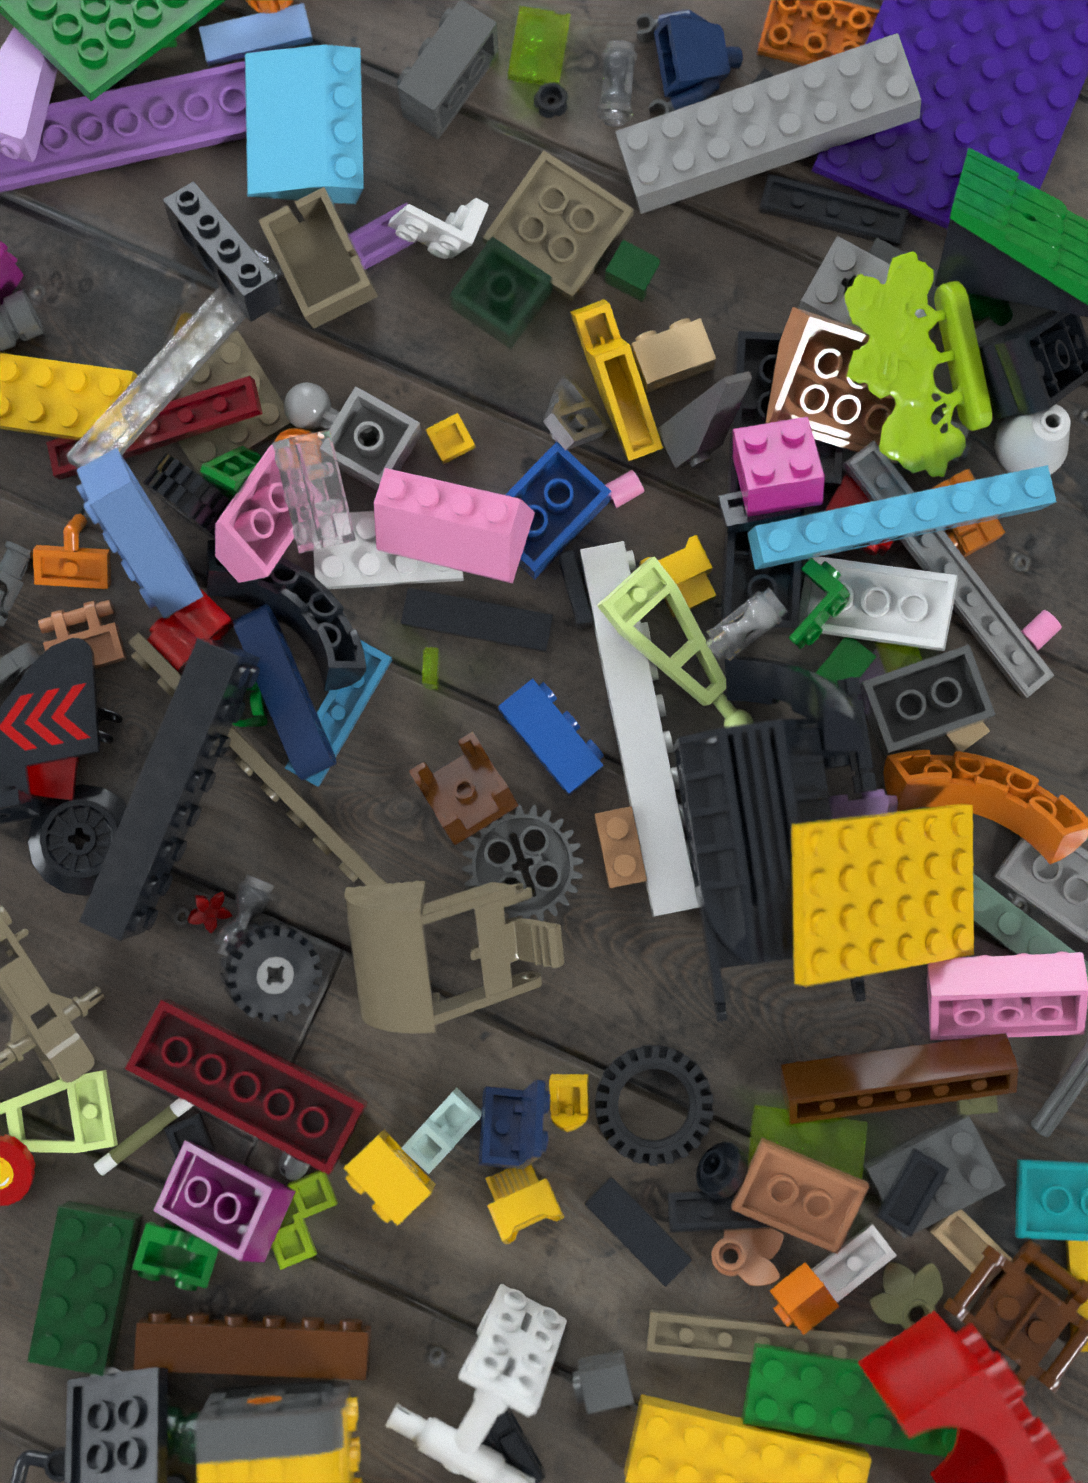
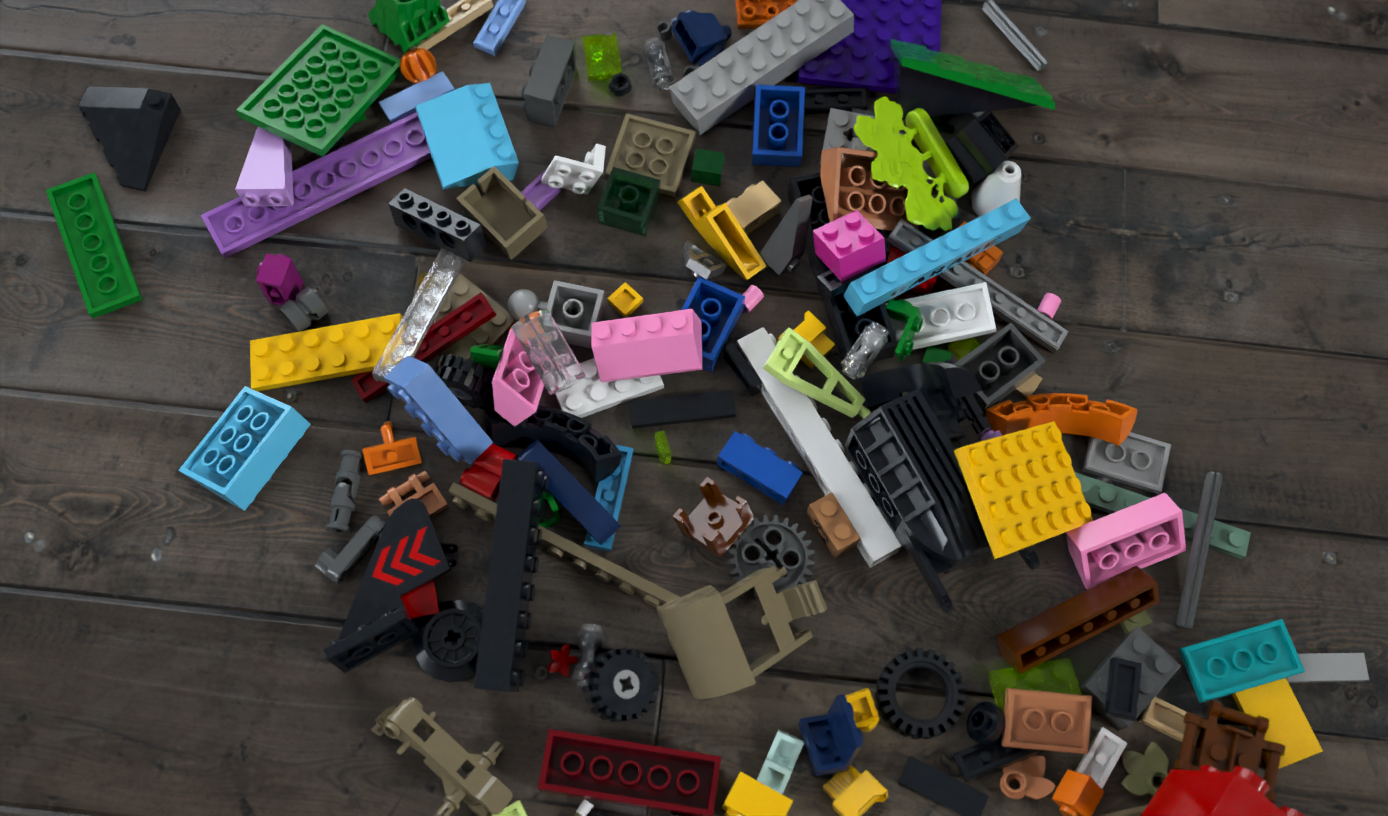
camera: 25 degrees left, 15 degrees down
(753, 238) = (778, 125): none -> blue brick

